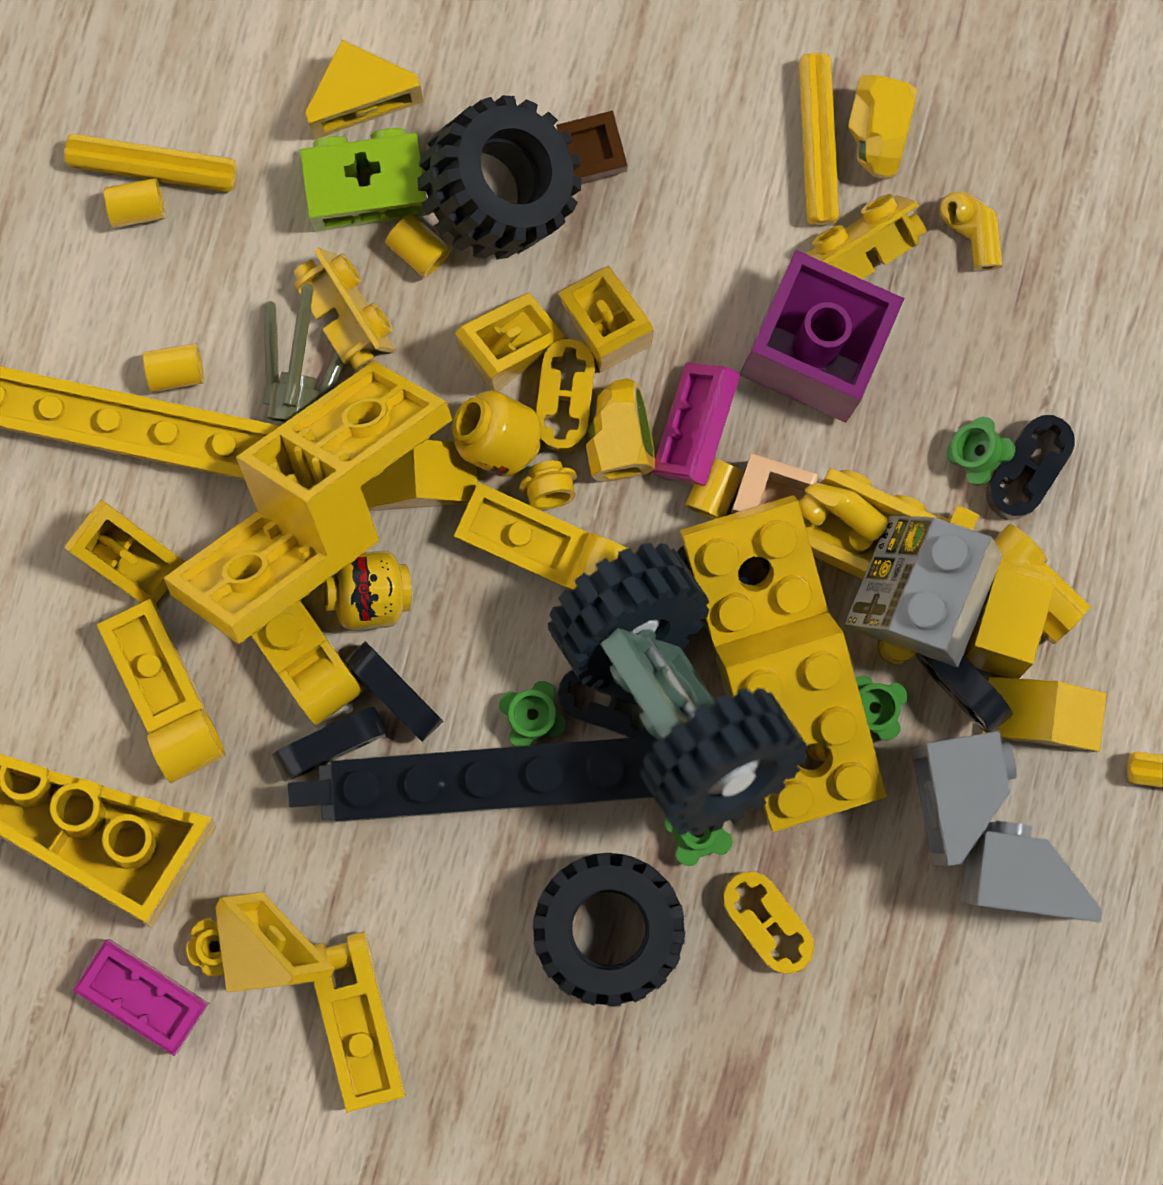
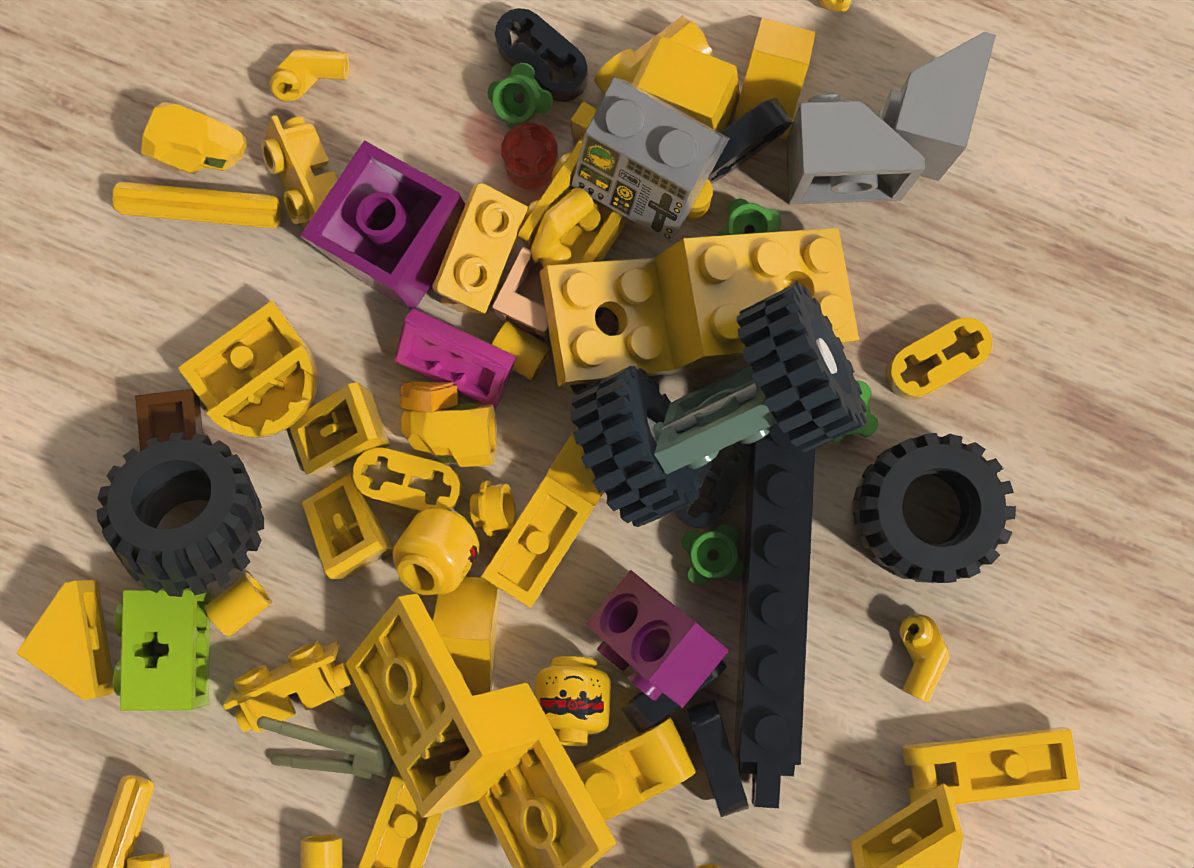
camera: 75 degrees left, 0 degrees up
(438, 661) = (656, 639): none -> magenta brick
(464, 945) = (927, 653): none -> yellow arm
(650, 227) = (255, 375): none -> yellow slope
(653, 402) = (427, 395): none -> light orange tile
(808, 431) = (479, 250): none -> yellow bracket
(929, 465) = (528, 143): none -> clear red wheel

